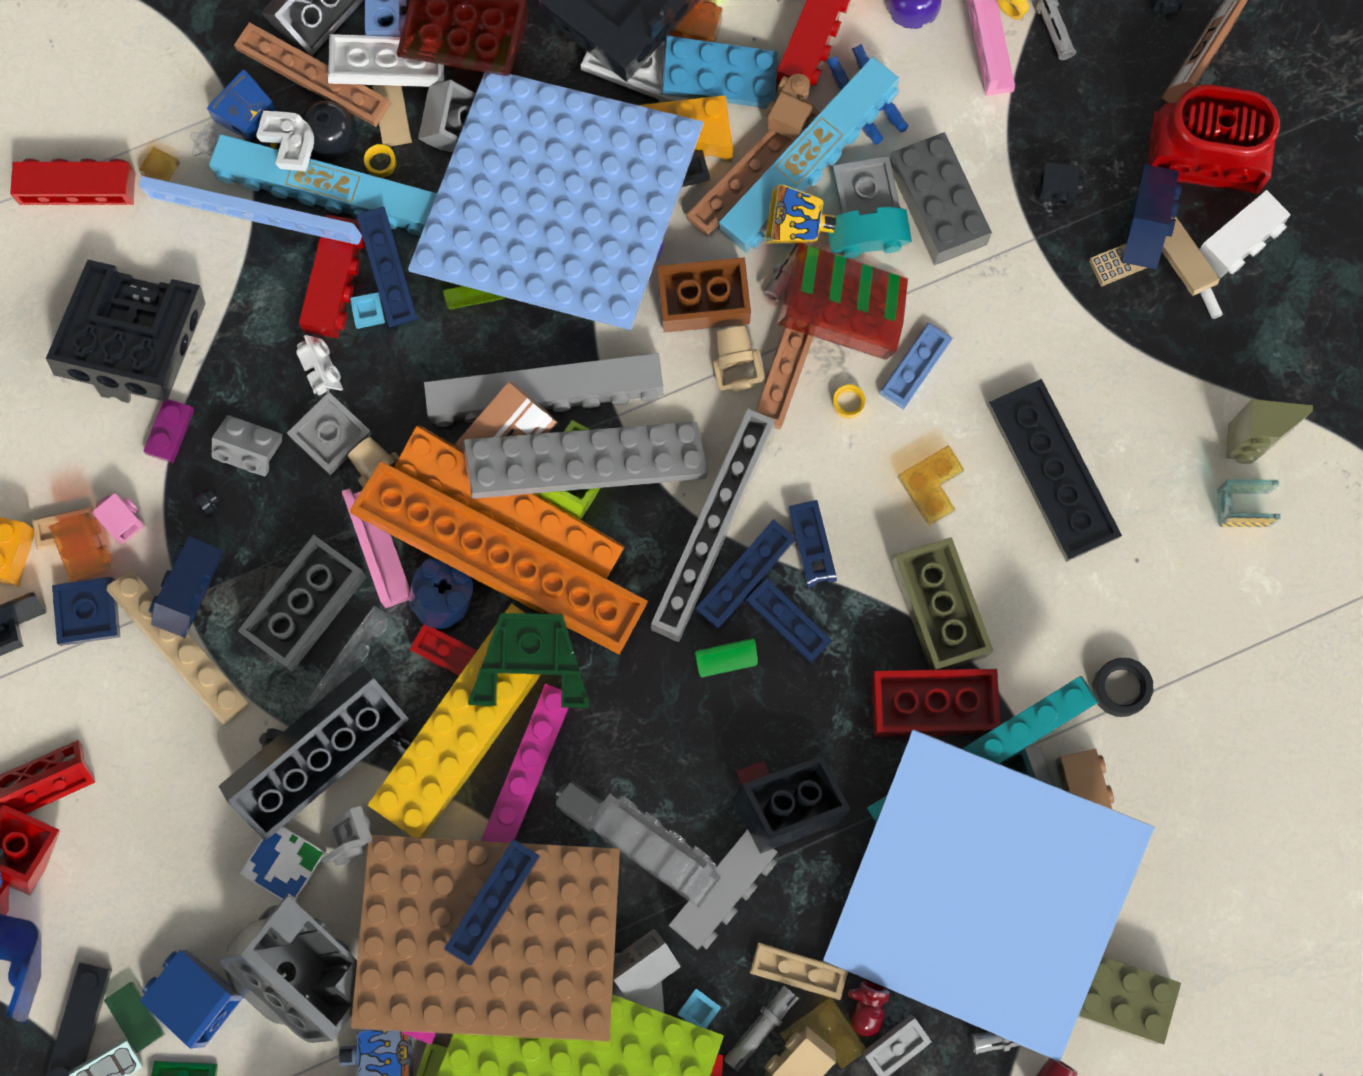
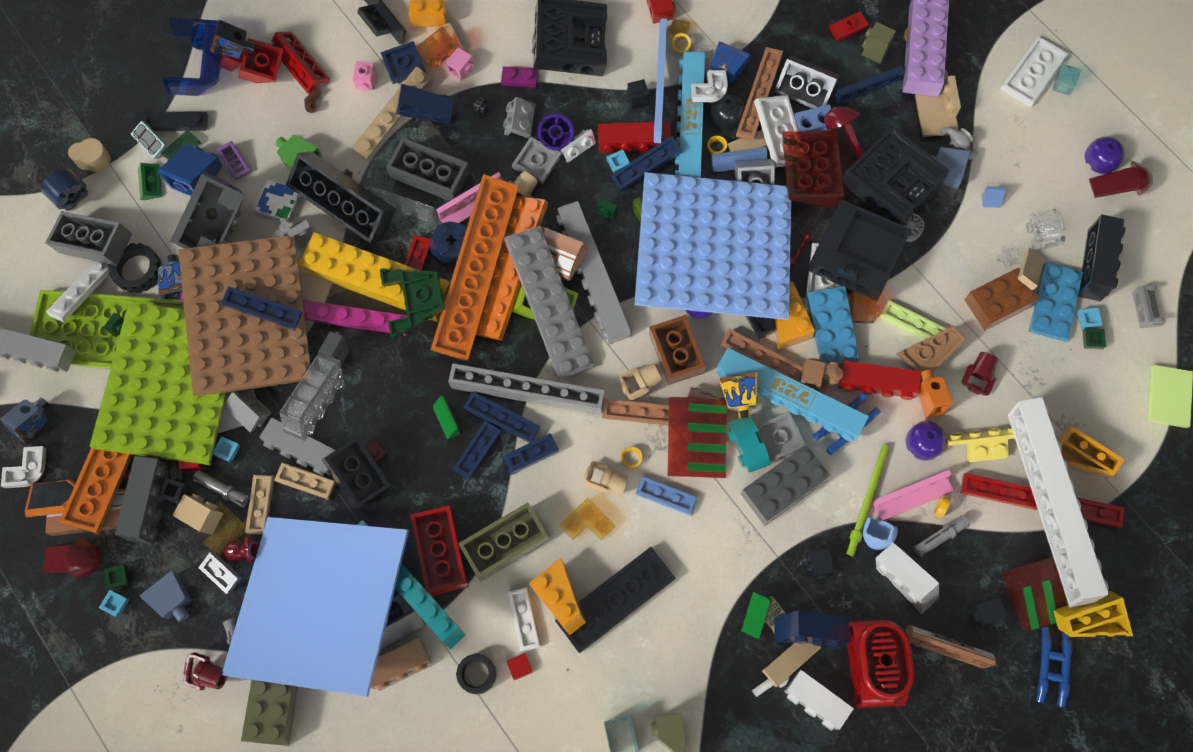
camera: 80 degrees right, 5 degrees down
(93, 678) = (364, 75): none -> bright pink brick
(112, 780) = (310, 101): none -> reddish brown arm
(172, 921) = (226, 149): none -> medium lavender slope
(197, 161) = (681, 35): none -> yellow piece
(207, 817) = (289, 148): none -> bright green torso
(259, 252) = (638, 94): none -> black brick
(293, 389) = (555, 131): none -> dark purple cylinder
(413, 149) = (727, 160): none -> medium blue tile
(444, 344) = (607, 208): none -> dark green plate
(565, 73) = (793, 260): none -> red hinge
(777, 893) = (305, 481): none -> tan tile
(878, 439) = (611, 480): none -> tan piece
(1028, 126) = (856, 534): none -> lime bar
(1036, 93) = (879, 533): none -> light blue hair
(1040, 542) = (558, 595): none -> light orange wedge
(1055, 605) = (524, 619): none -> white tile
(1102, 74) = (908, 577): none -> white wedge
(1115, 283) = (756, 615): none -> green slope
(1122, 625) = (519, 666): none -> red tile

